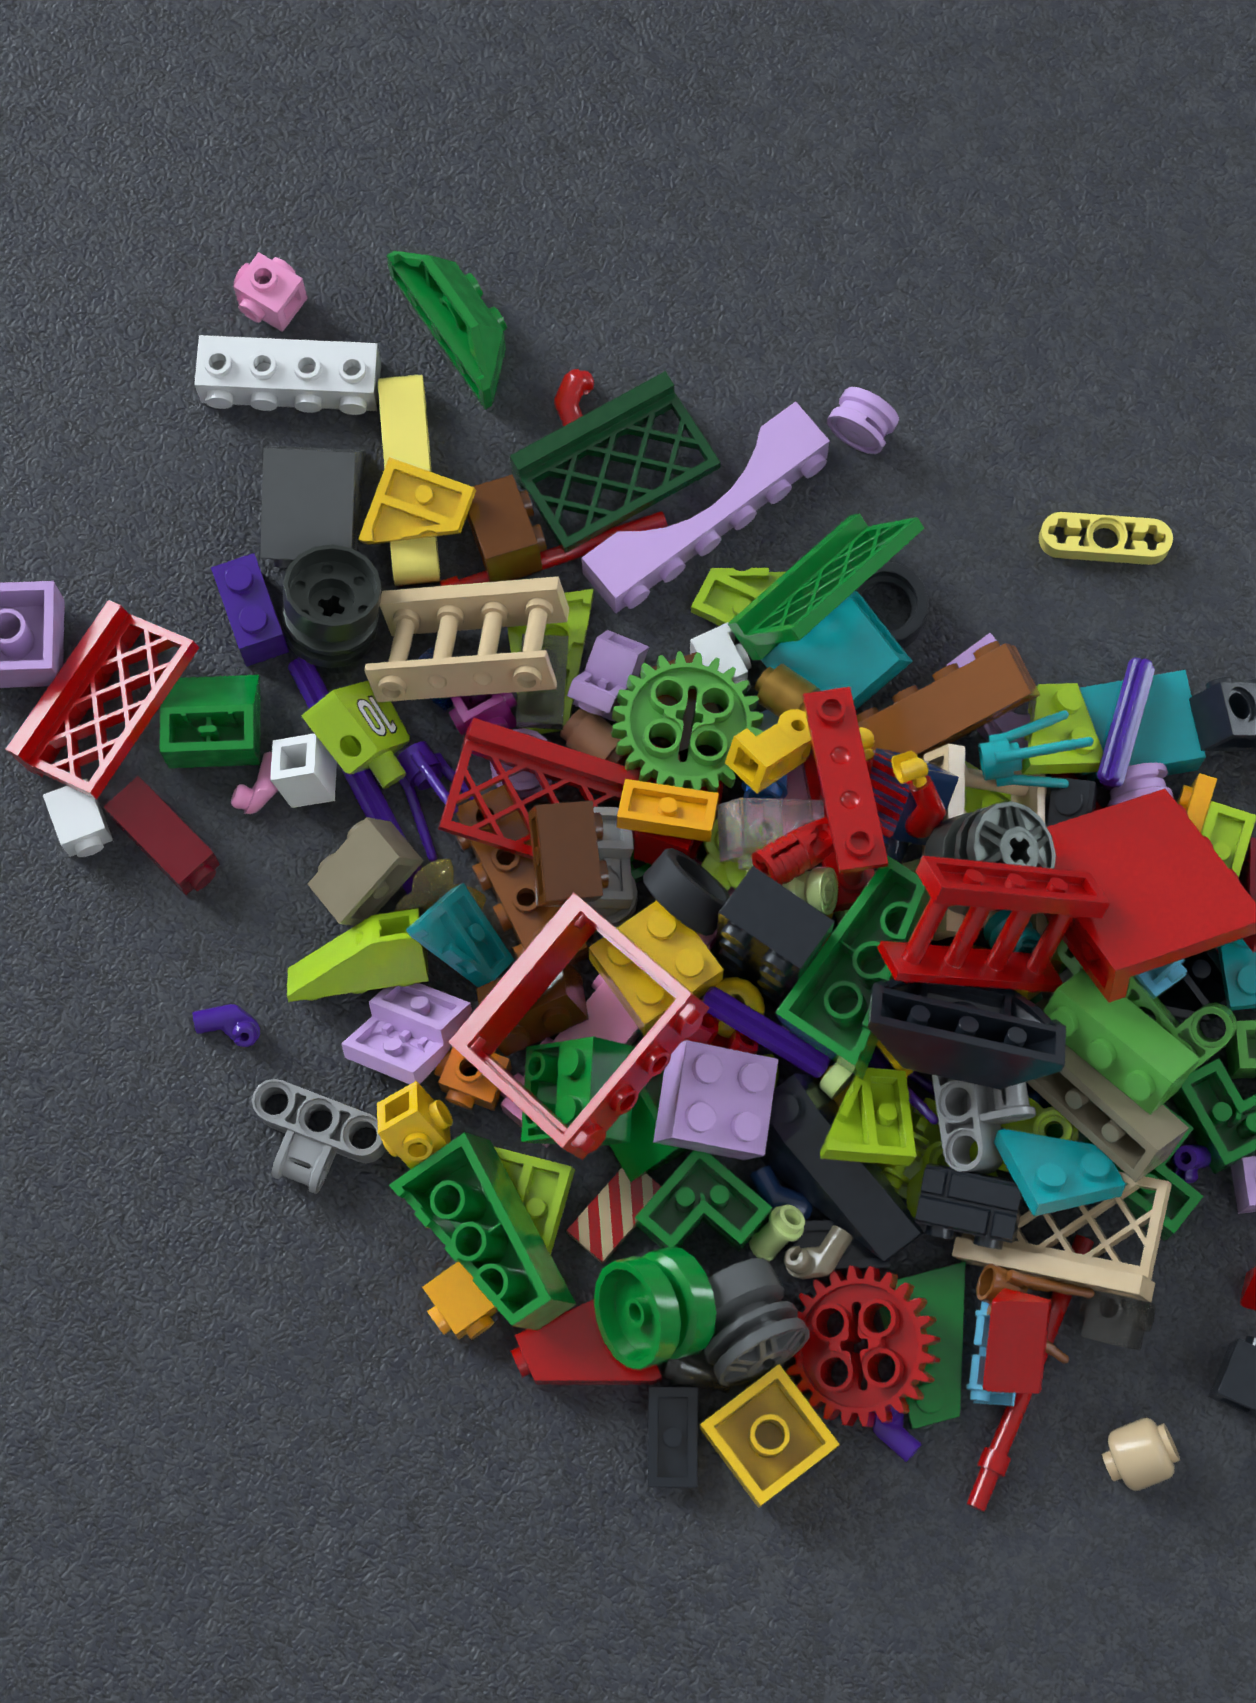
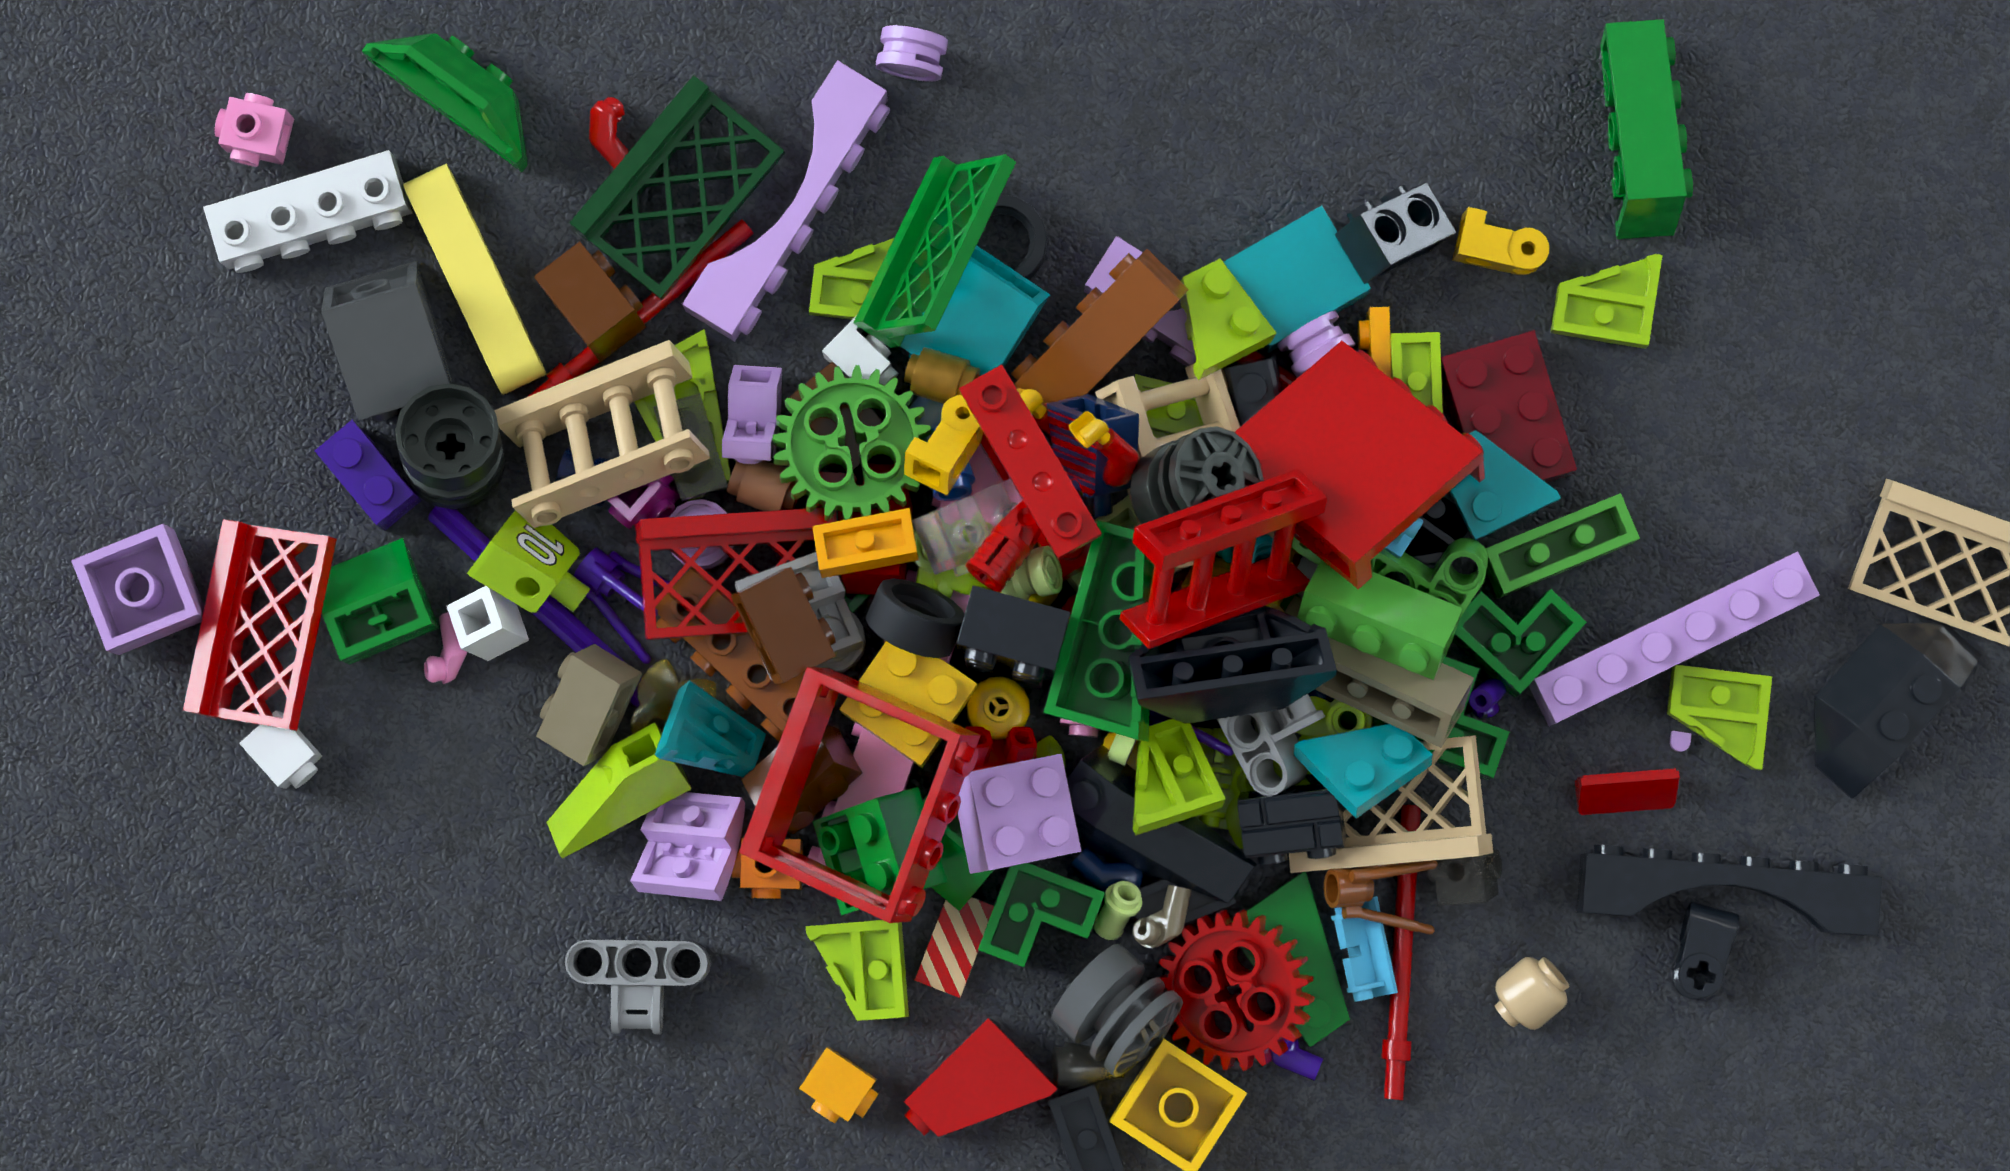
camera: 20 degrees left, 10 degrees up
(163, 836) = (373, 738): dark red brick -> none
(231, 1020) = (513, 895): dark purple arm -> none
(413, 1124) = (733, 938): yellow brick -> none
(415, 505) = (495, 311): yellow wing -> none
(487, 1229) = (841, 1012): green wedge -> none
(654, 1307) = (1029, 1032): green wheel -> none
(765, 1032) = (1034, 725): dark purple axle -> none
(1002, 758) = (1173, 373): teal plant -> none
(1016, 1343) = (1379, 937): red slope -> none
(1126, 722) = (1281, 284): dark purple axle -> none
(1136, 554) = (1234, 88): light yellow beam -> none

